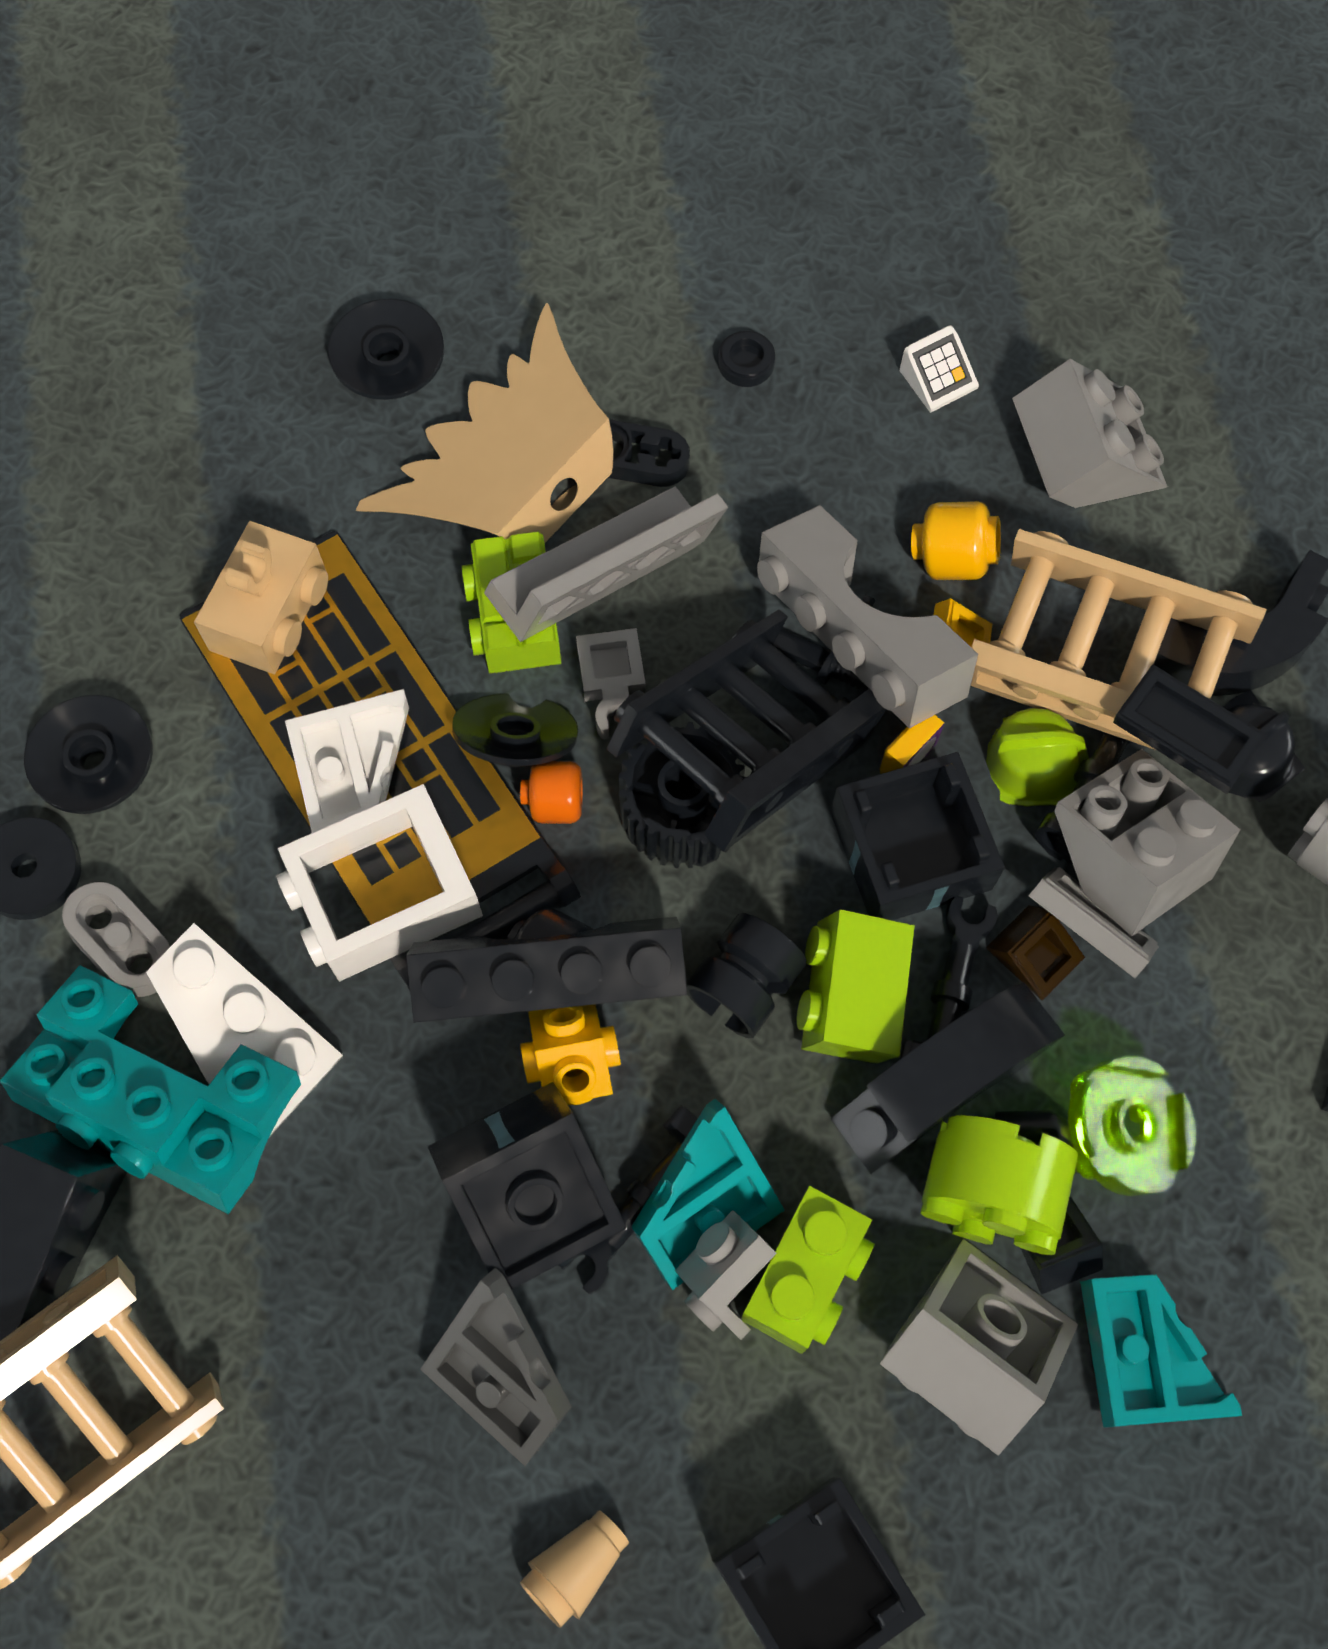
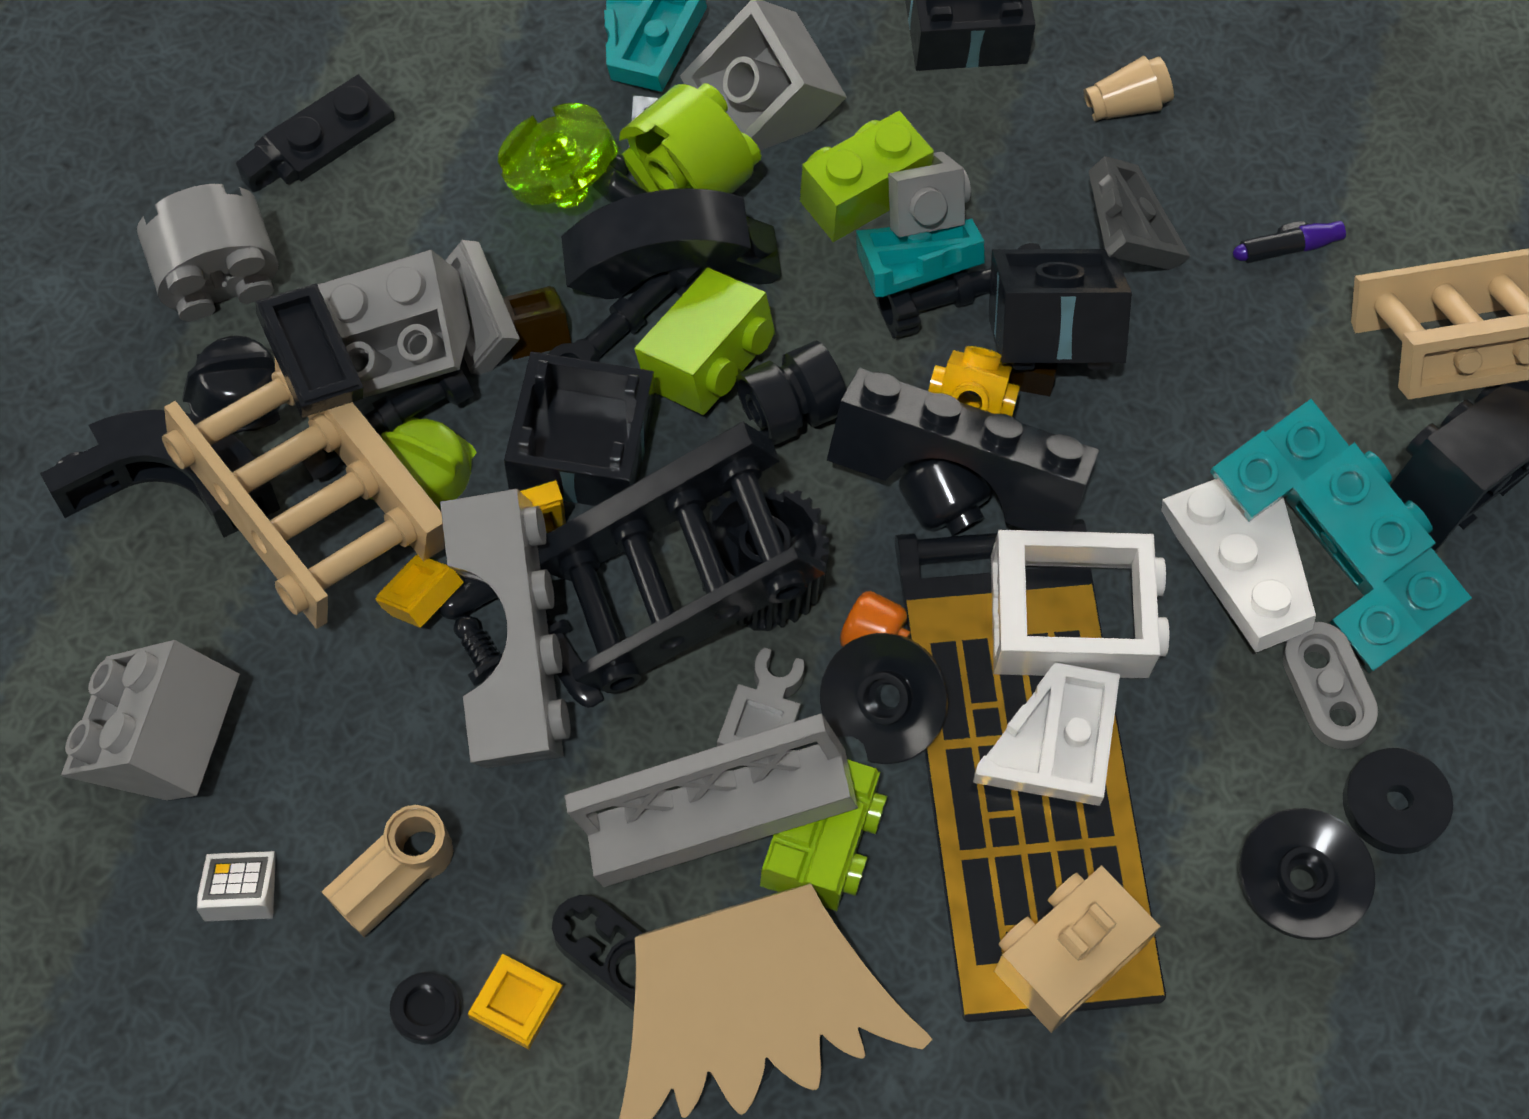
camera: 155 degrees left, 5 degrees down
(318, 1459) = (1290, 239): none -> piece
(683, 391) = (515, 1001): none -> yellow tile
(832, 425) = (386, 875): none -> tan piece
(957, 540) = (354, 682): yellow head -> none

